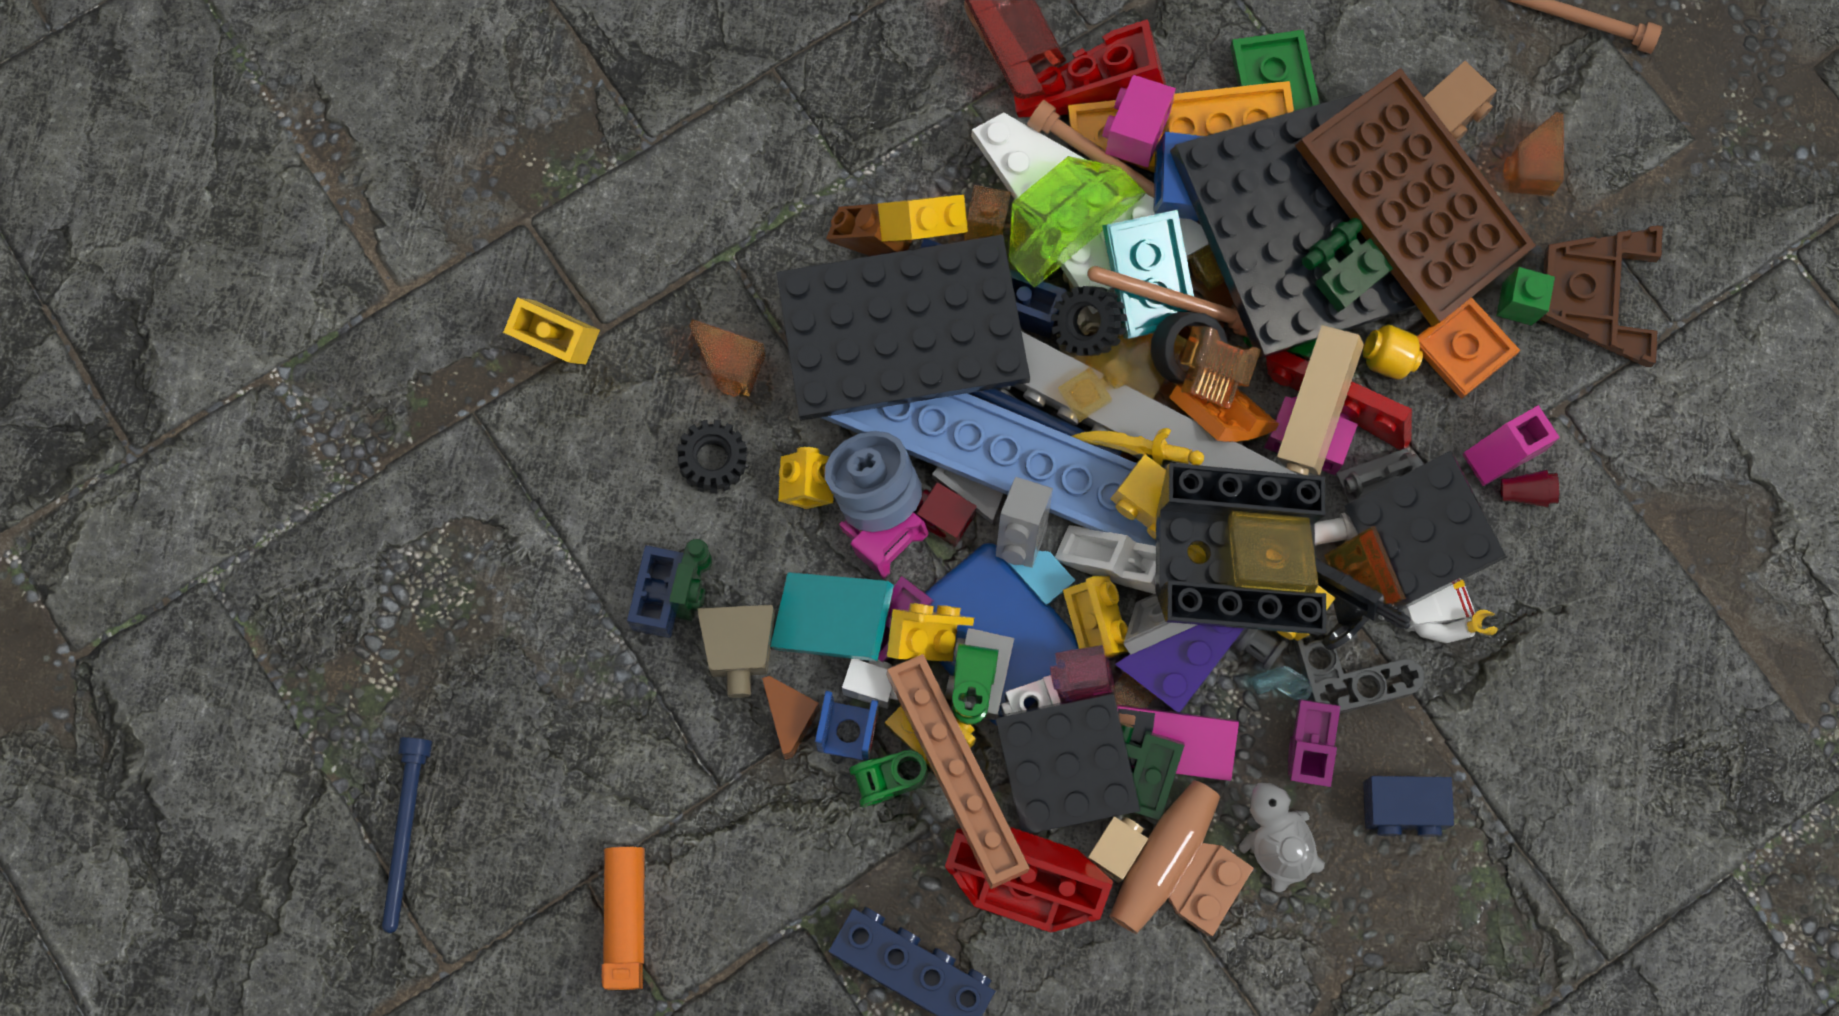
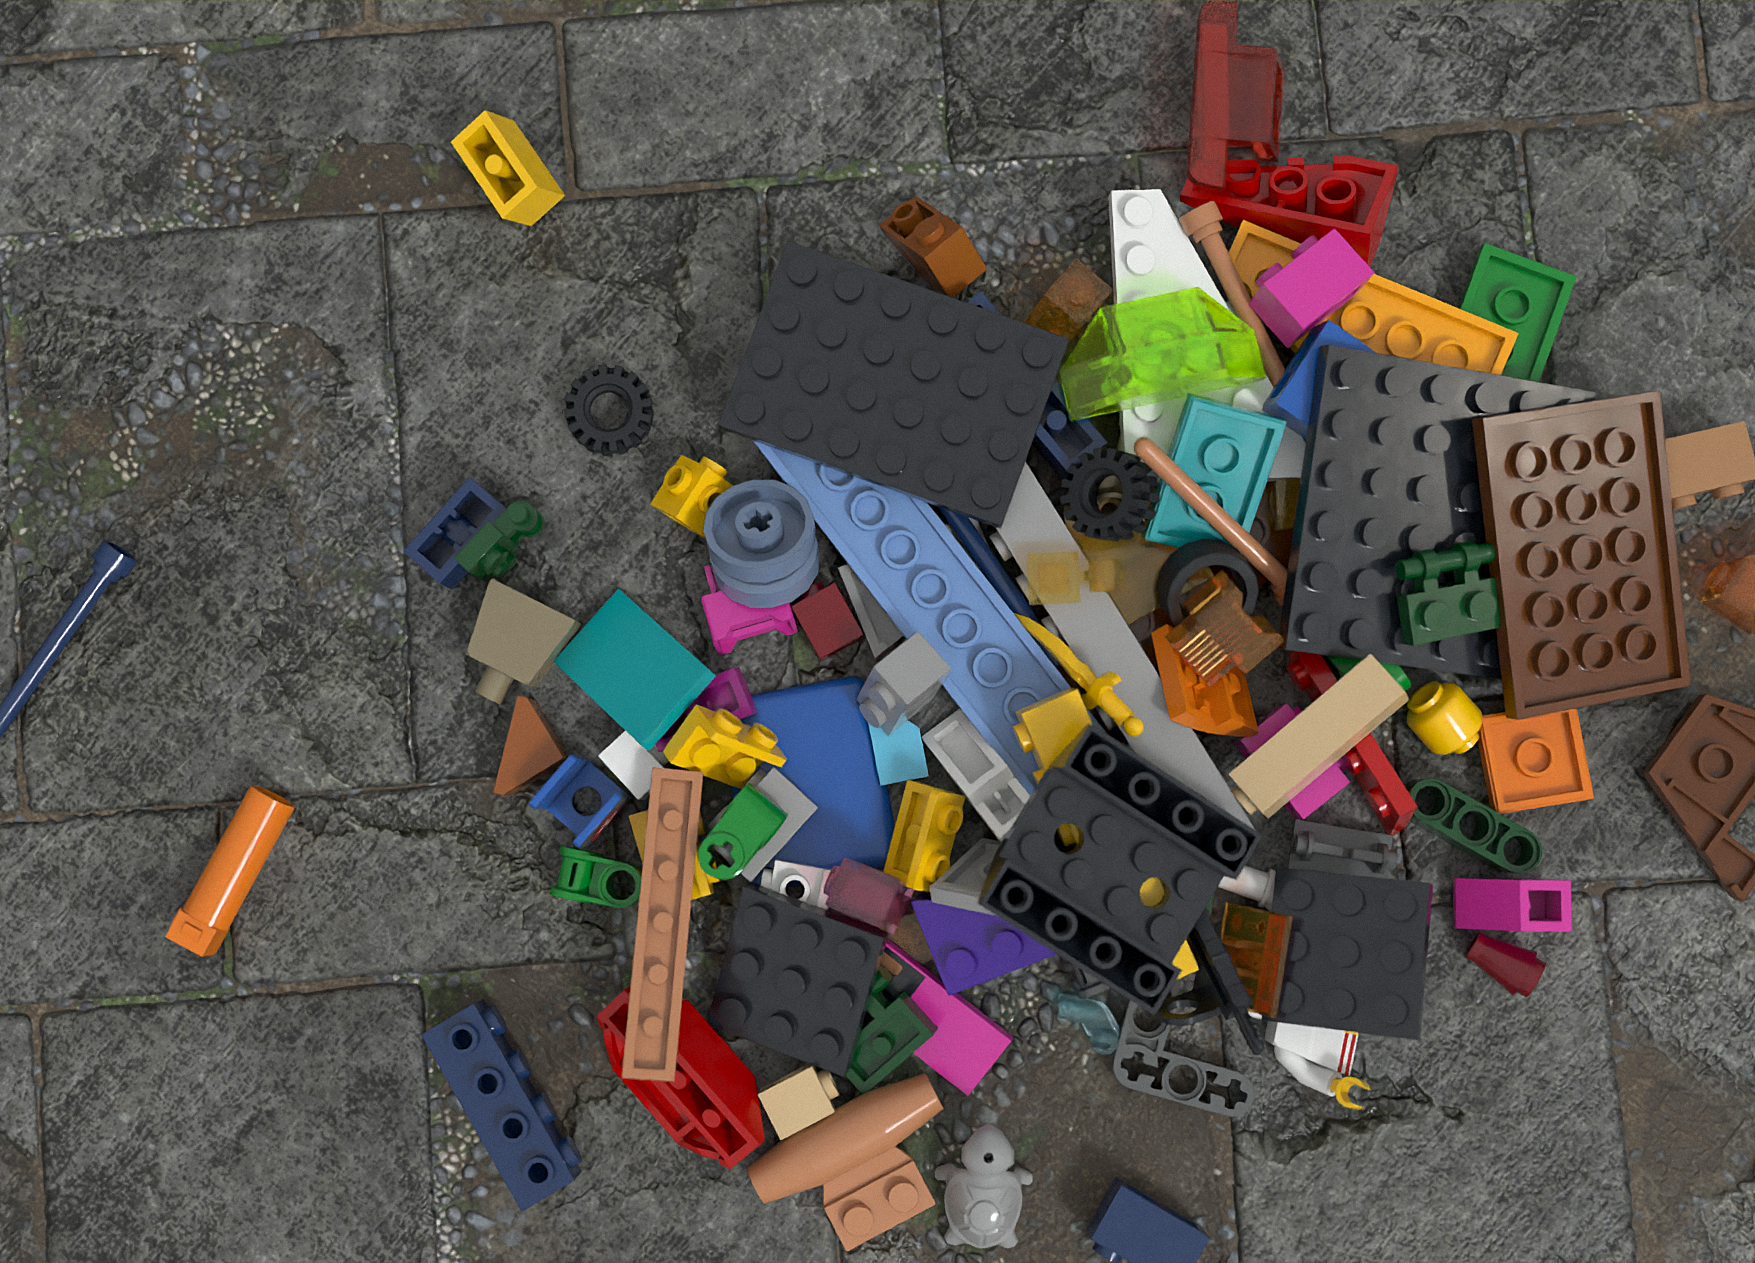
camera: 35 degrees right, 10 degrees up
(729, 358) = (688, 308): clear orange slope -> none
(922, 218) = (992, 266): yellow brick -> none
(1272, 552) = (1149, 889): clear yellow tile -> none
(1313, 743) = (1080, 1110): magenta brick -> none
(1466, 403) = (1491, 833): none -> dark green beam
(1525, 296) = (1640, 739): green brick -> none

